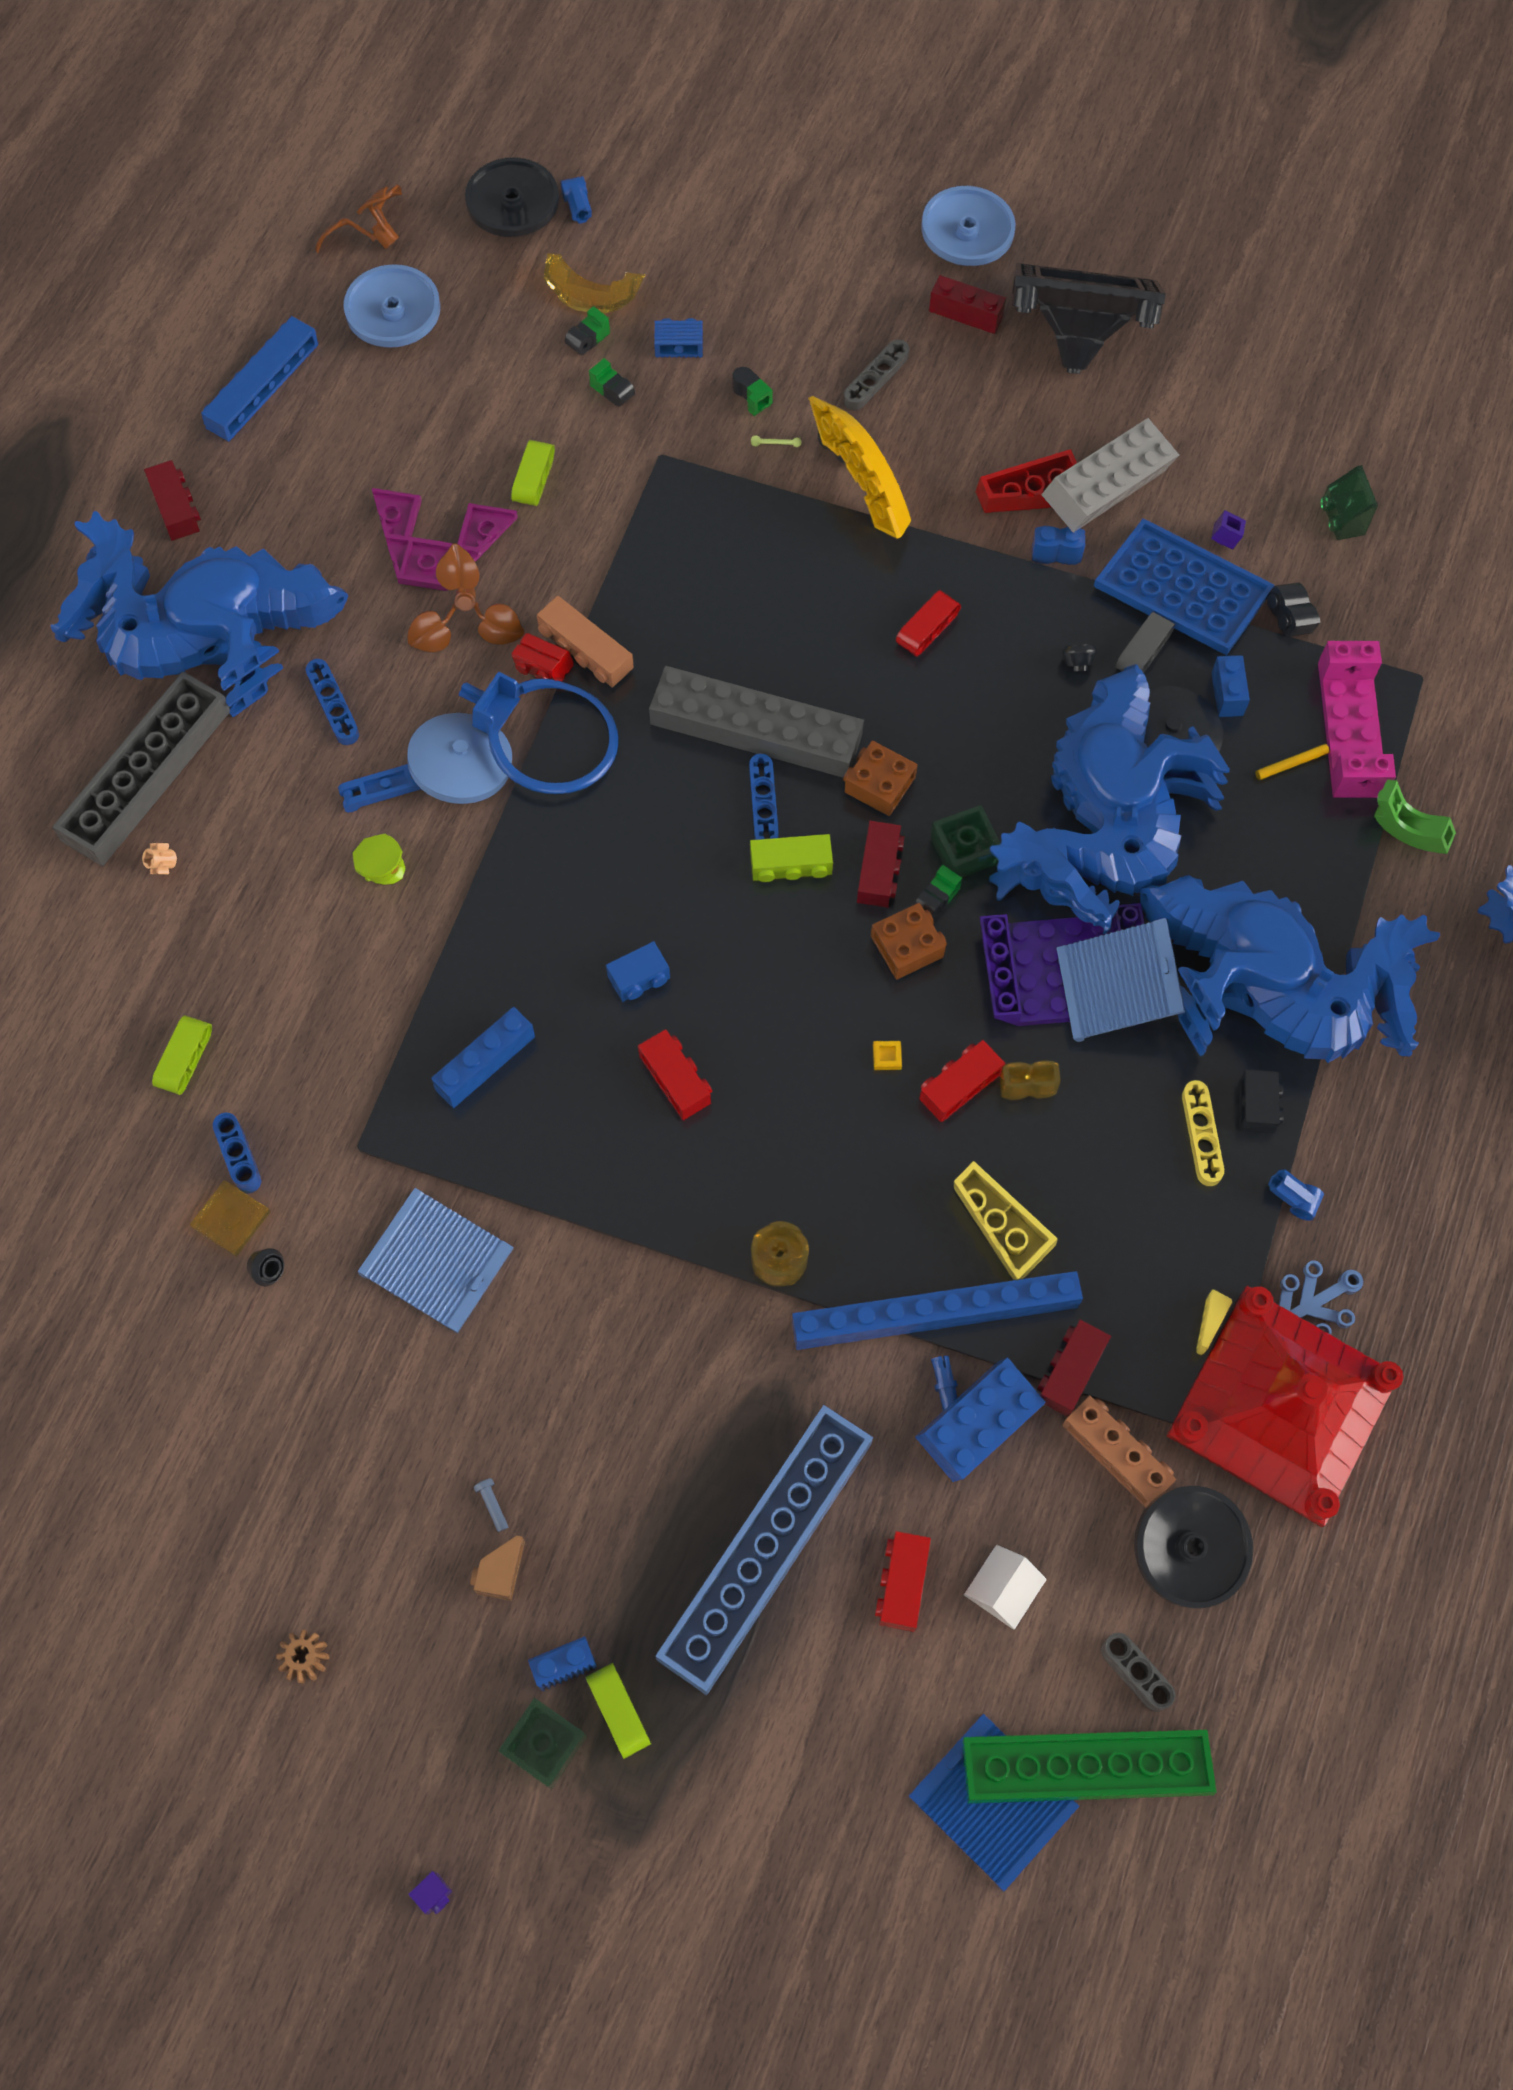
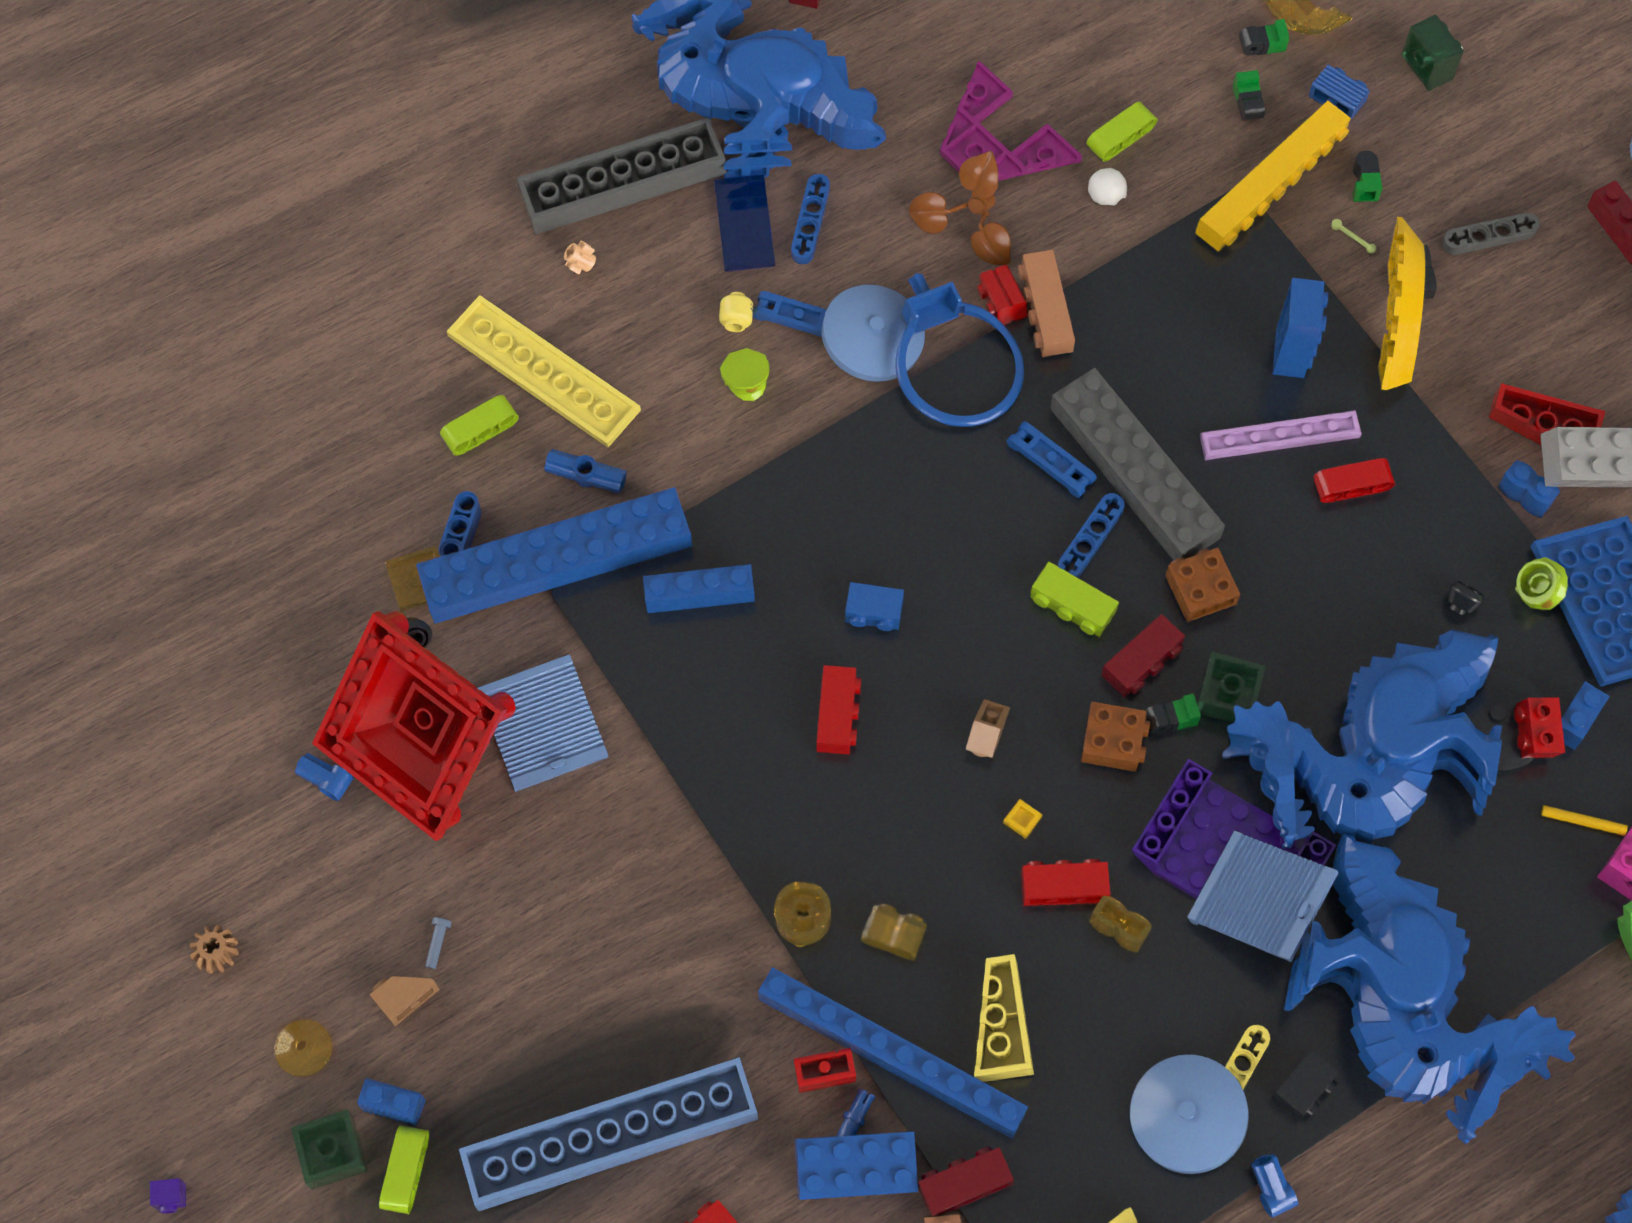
camera: 40 degrees right, 0 degrees up
(201, 972) = (544, 371): none -> light yellow plate
(278, 740) = (744, 223): none -> clear blue tile
(290, 1035) = (570, 466): none -> blue piece
(291, 1440) = (329, 779): none -> blue piece
(331, 815) = (736, 312): none -> light yellow head
(334, 1338) = (409, 725): none -> red piece
(337, 1116) = (554, 555): none -> blue brick
(462, 1682) = (312, 1057): none -> clear yellow dish
(555, 523) = (1107, 187): none -> white hair
(680, 433) = (1273, 176): none -> yellow brick
(684, 761) = (1051, 458): none -> blue plate
(727, 263) = (1432, 52): none -> clear green brick
(802, 529) = (1300, 327): none -> blue brick
(805, 1004) = (987, 728): none -> medium nougat slope
(844, 627) = (1280, 435): none -> lavender tile
(862, 1215) = (894, 932): none -> clear yellow brick
(895, 1364) = (824, 1070): none -> red brick
(1126, 607) = (1542, 584): none -> lime hat
(1146, 643) = (1532, 628): dark grey beam -> none
(1195, 1186) = (1189, 1114): none -> medium blue dish
(1213, 716) = (1539, 728): none -> red brick

